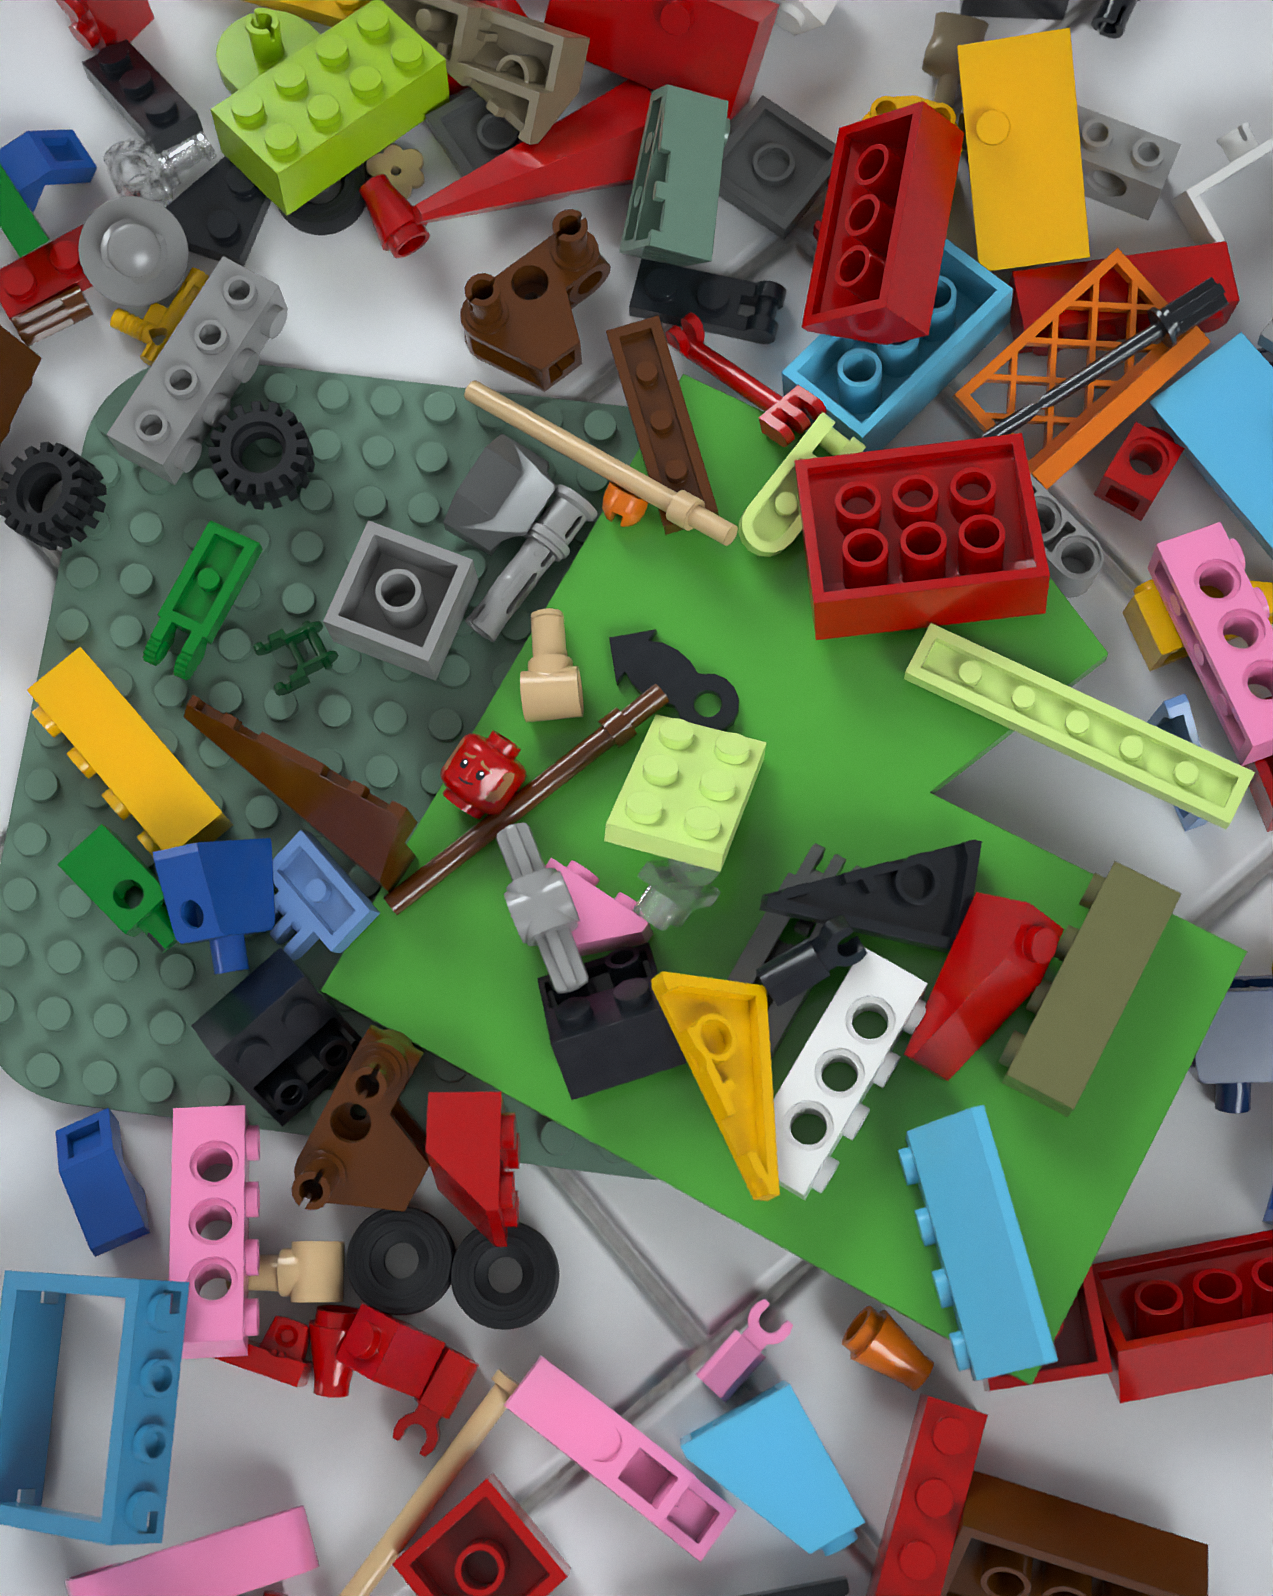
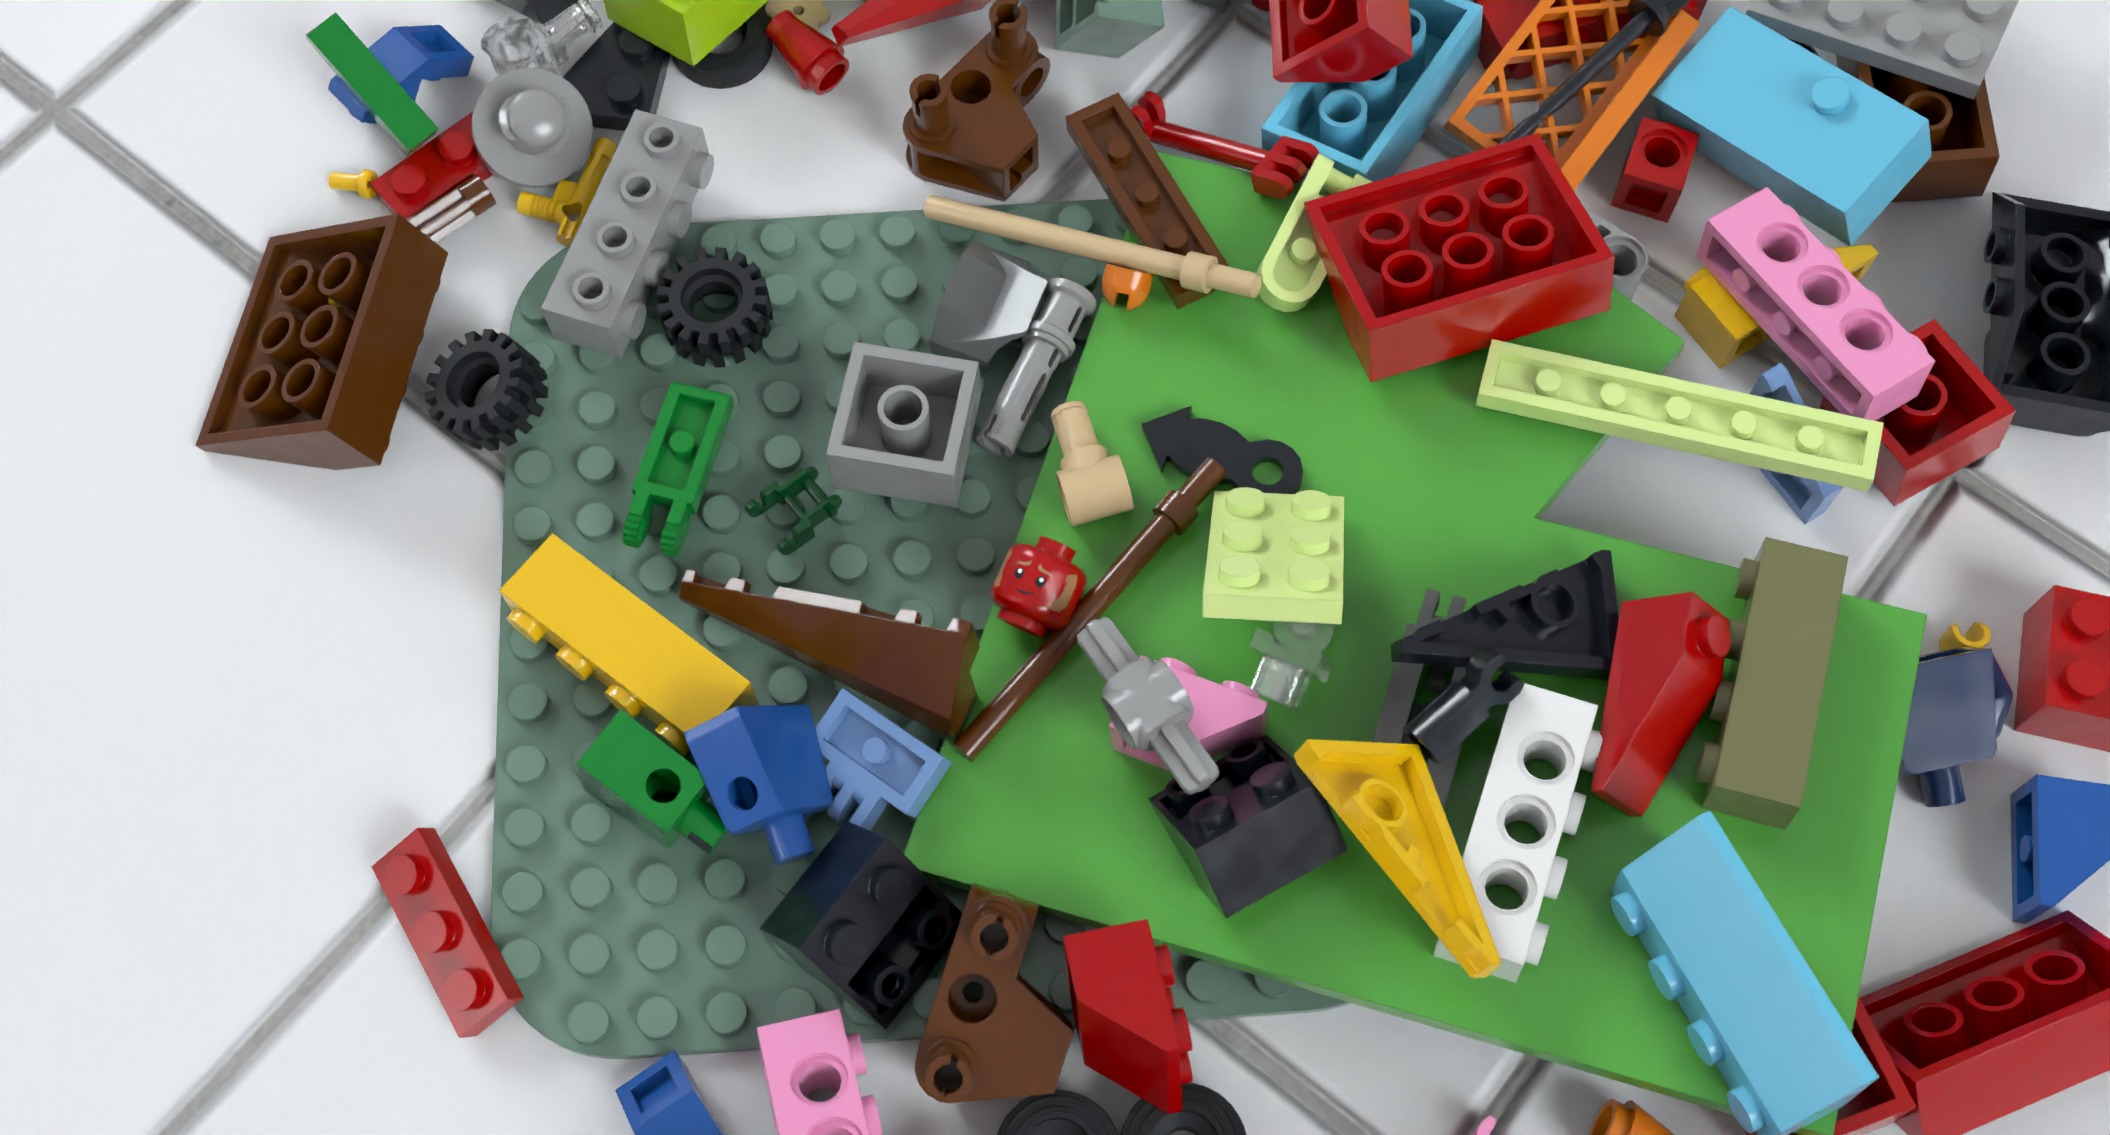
camera: 15 degrees left, 10 degrees down
(713, 298) = (1166, 75): black plate -> none

